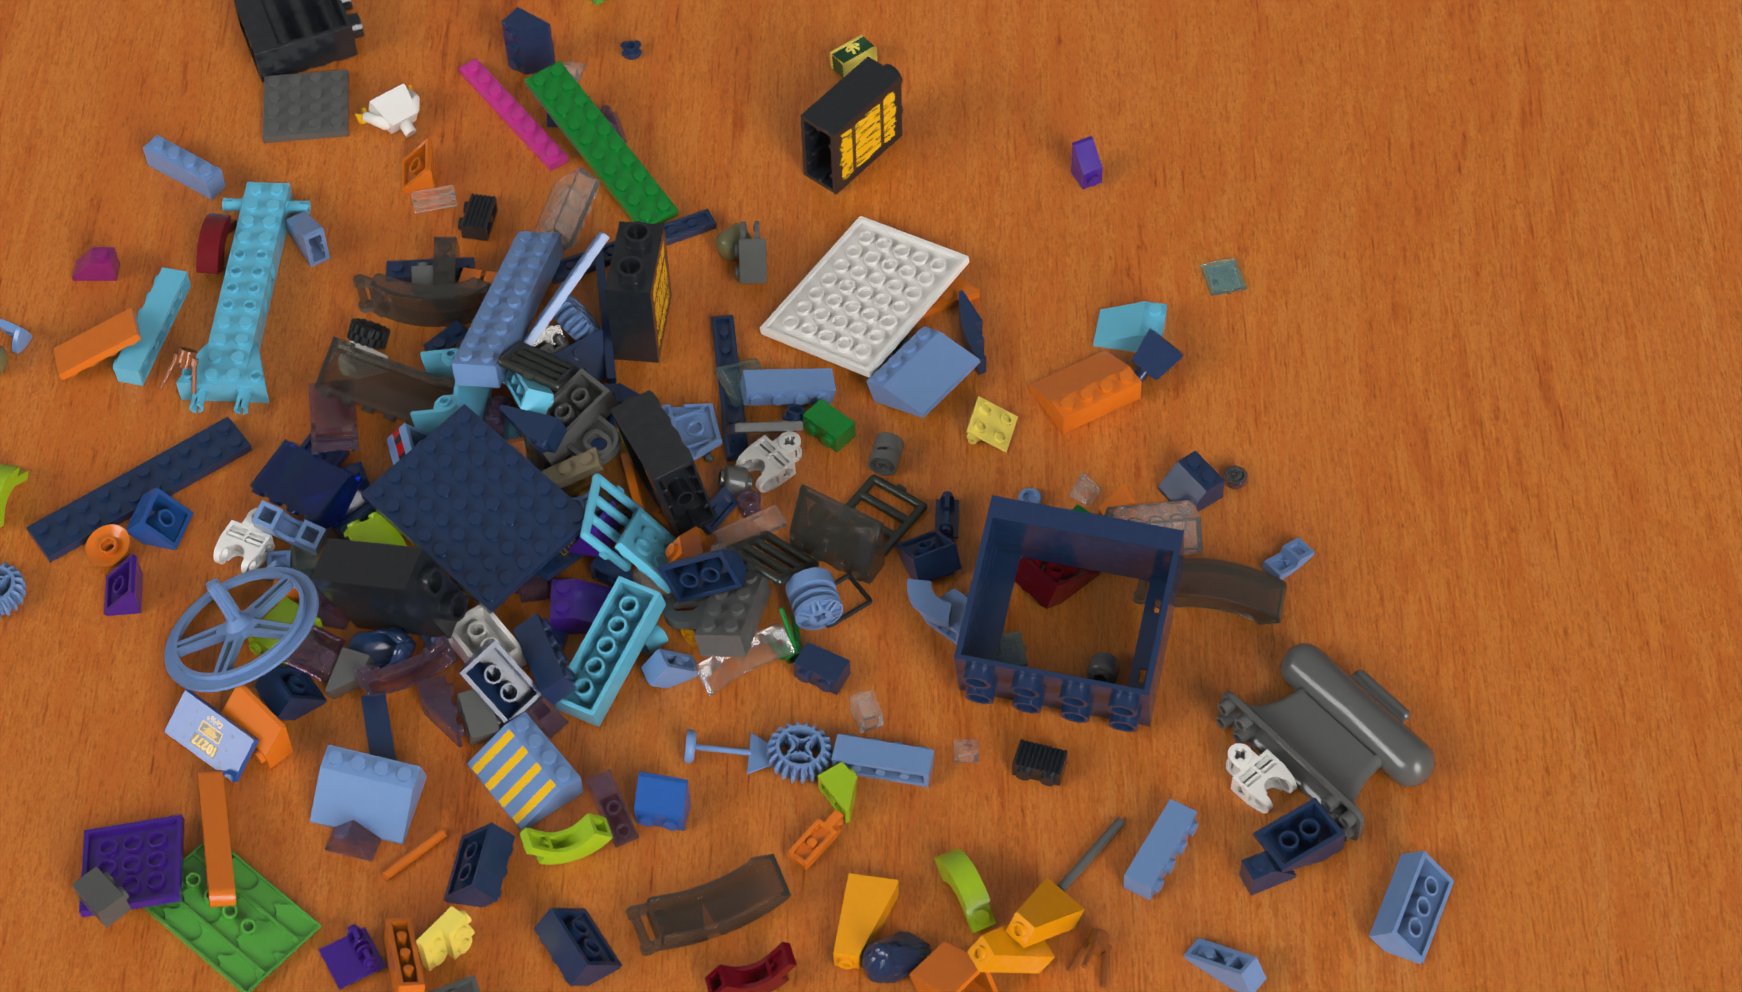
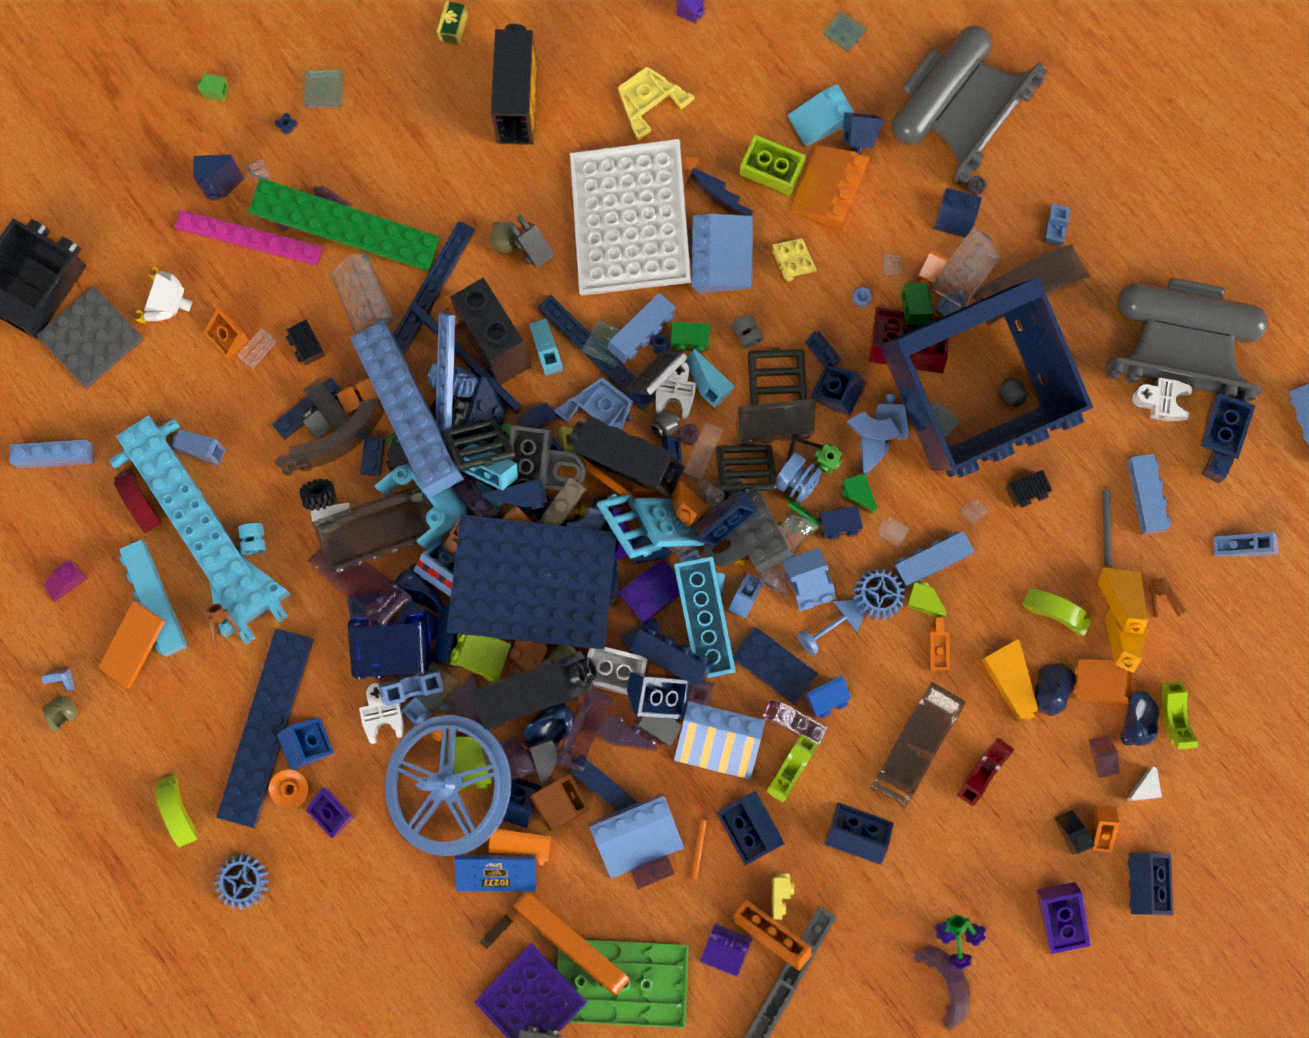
camera: 40 degrees left, 25 degrees up
(163, 787) = (496, 932): none -> dark brown beam
(279, 333) = (254, 532): none -> medium azure wheel
(325, 715) = (559, 802): none -> dark orange slope
(374, 456) = (418, 589): none -> dark blue hair
(639, 744) = (775, 665): none -> dark blue plate
(684, 352) = (546, 347): none -> medium azure slope
(690, 43) = (323, 88): none -> clear light blue tile
(742, 694) = (809, 579): none -> medium blue piece
(811, 468) = (708, 379): none -> medium azure slope
(860, 604) = (825, 464): none -> bright green brick
(865, 654) = (859, 493): none -> green slope
(908, 632) = (871, 453): none -> medium blue slope
(978, 210) = (646, 91): none -> light yellow wing
(1042, 334) = (772, 165): none -> lime brick
(1286, 395) = (962, 98): none -> dark grey piece

